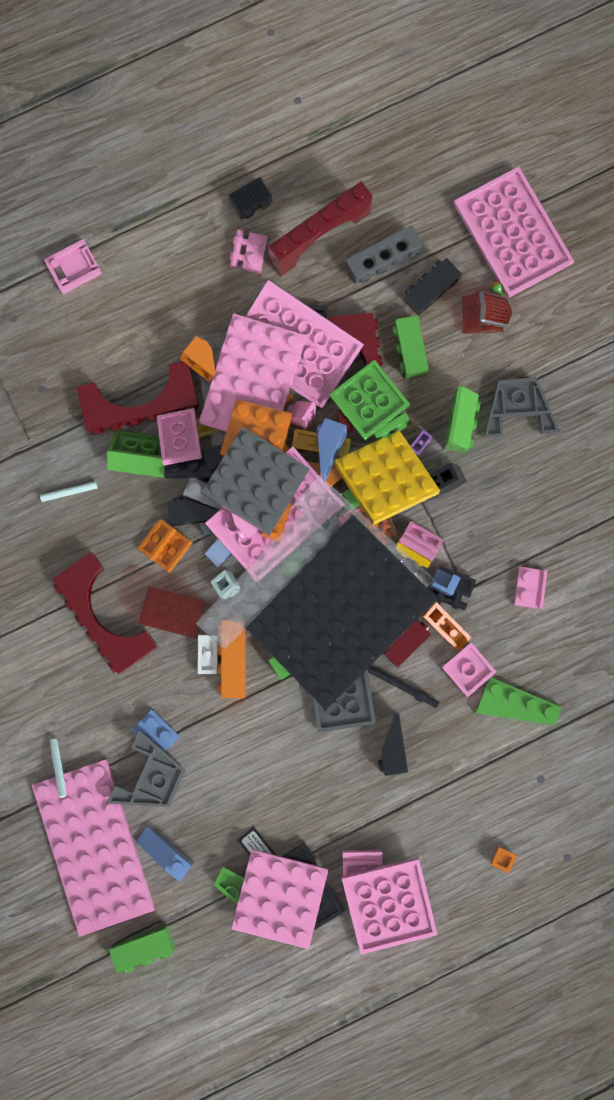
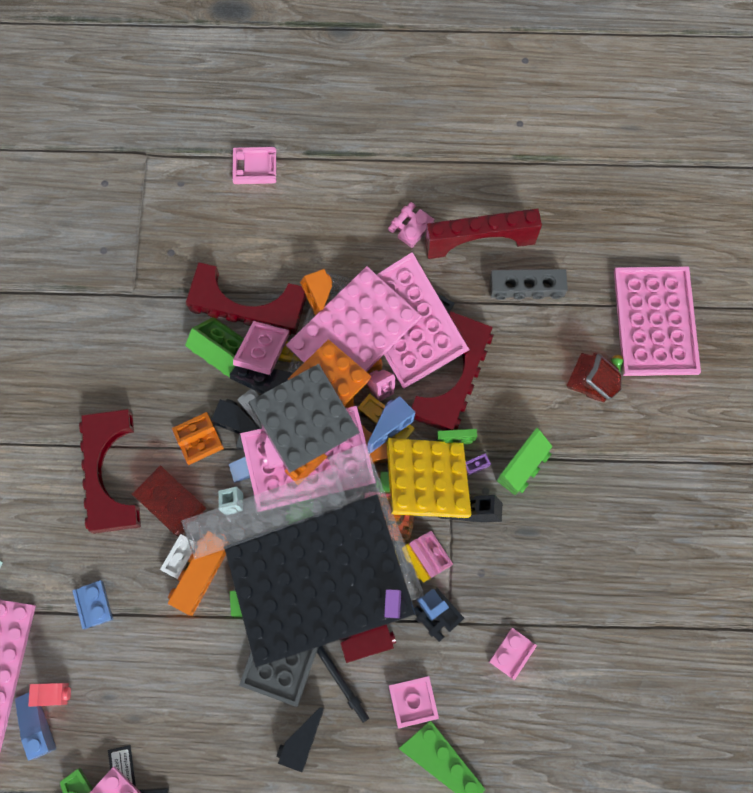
camera: 25 degrees right, 10 degrees down
(69, 491) = (142, 348): light aqua bar -> none
(157, 780) = (66, 650): dark grey wing -> none
(165, 822) = (49, 694): none -> coral arch
(250, 198) = (436, 181): black brick -> none
(369, 400) = (448, 400): bright green plate -> none
(410, 347) = (511, 374): bright green brick -> none
(415, 599) = (392, 603): none -> medium lavender piece
(432, 286) = (558, 331): black brick -> none
(446, 626) = (412, 647): orange slope -> none
(519, 399) = (589, 471): dark grey wing -> none

